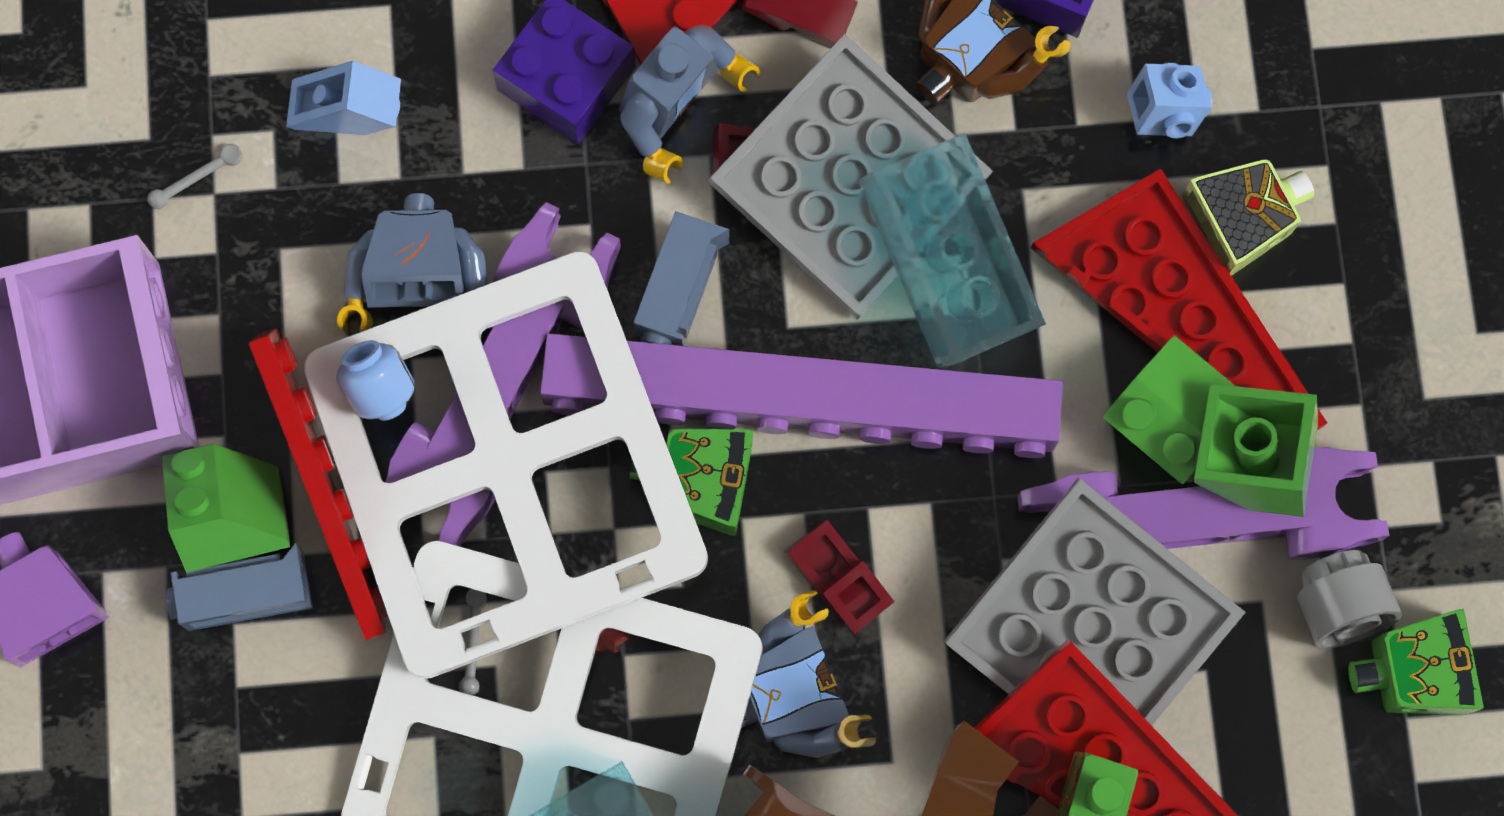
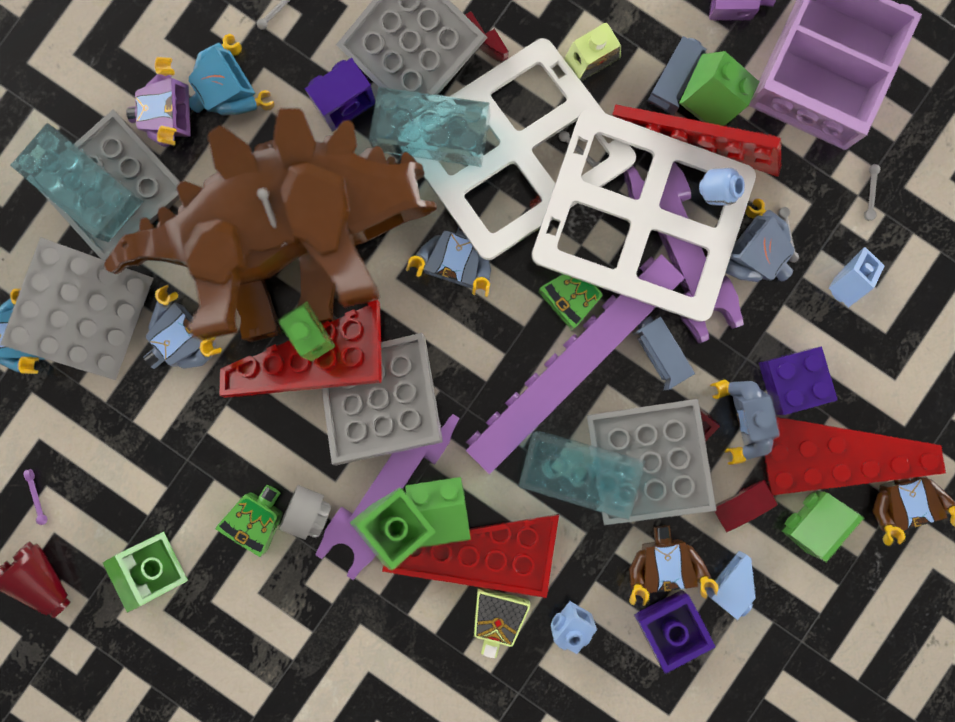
camera: 135 degrees right, 10 degrees up
(309, 741) = (595, 50): none -> yellowish green torso
(326, 275) = (783, 213): none -> light grey hinge
(839, 576) = (486, 317): dark red slope -> none

